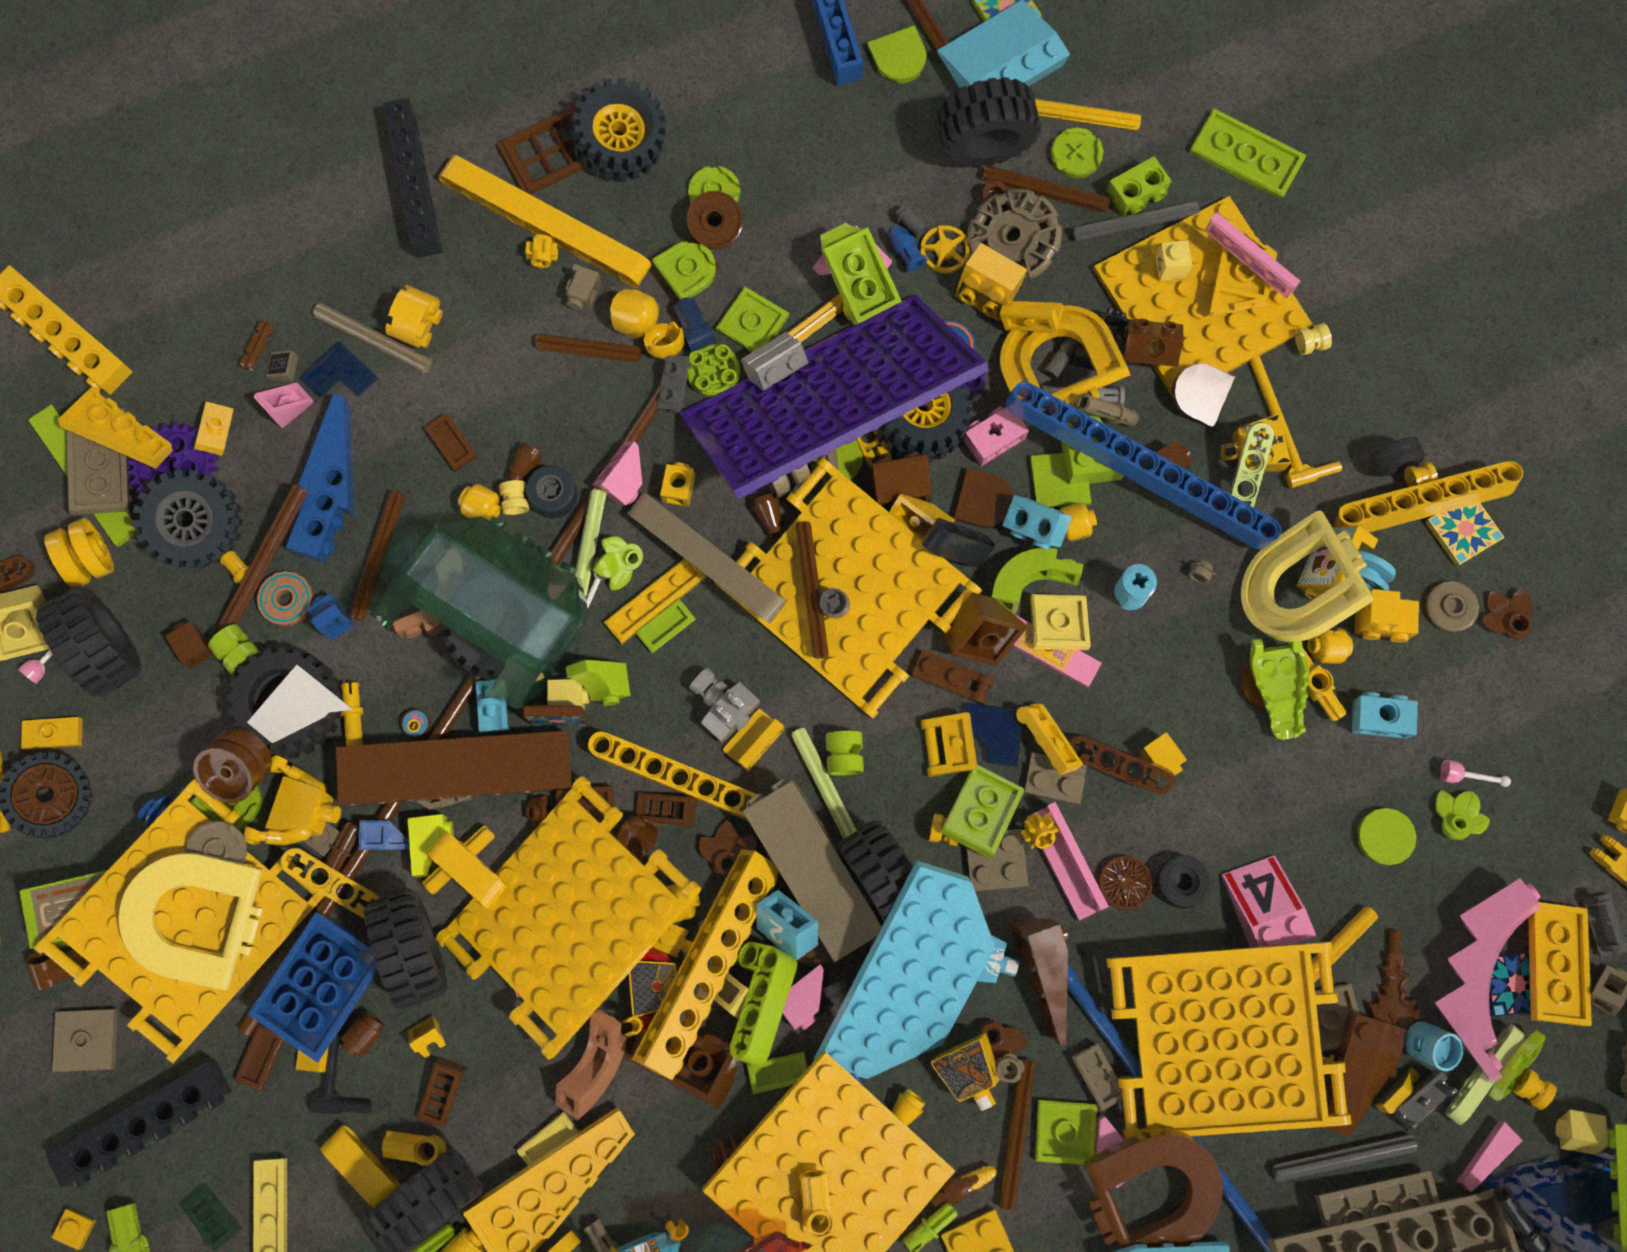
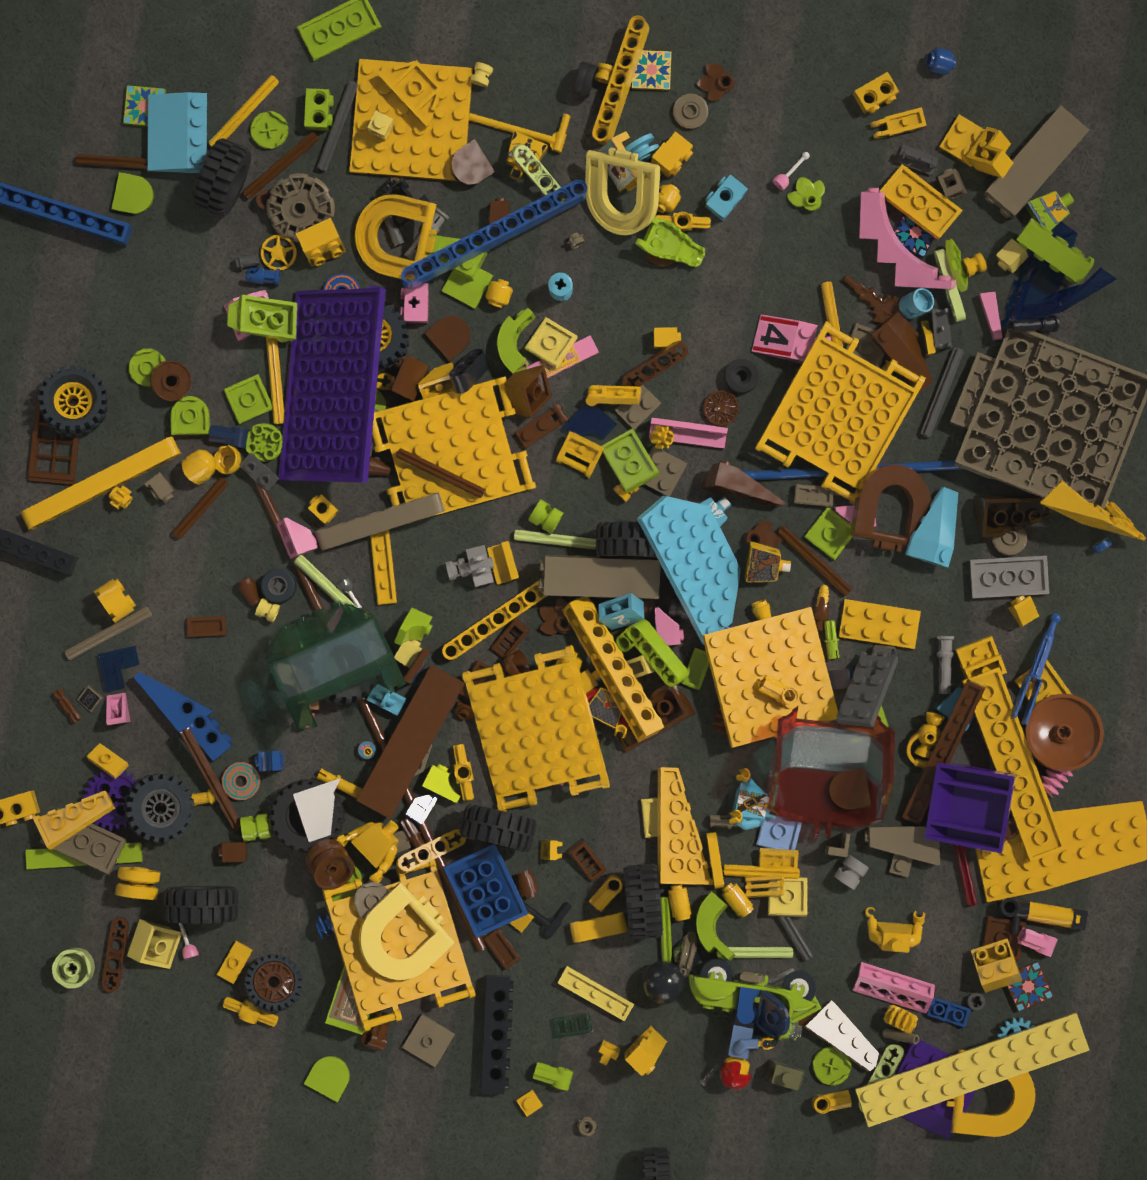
camera: 55 degrees left, 10 degrees up
(376, 556) = (249, 712): reddish brown axle -> none
(467, 869) = (474, 769): yellow beam -> none
(479, 501) = (259, 632): yellow head -> none
(596, 1068) = (629, 766): nougat arch -> none
(615, 562) = (348, 573): lime plate -> none
(665, 625) = (403, 570): lime tile -> none
(774, 361) = (286, 403): light grey brick -> none
(831, 600) = (457, 465): dark grey wheel -> none
(1017, 1068) = (778, 536): dark tan plate -> none
(1032, 316) = (358, 231): yellow panel -> none
(1037, 518) = (483, 313): medium azure brick -> none
(1113, 412) = (449, 226): dark tan pin -> none
(1163, 352) = (423, 174): reddish brown brick -> none
(1252, 255) = (410, 79): bright pink tile -> none
(1386, 836) = (792, 244): lime tile -> none

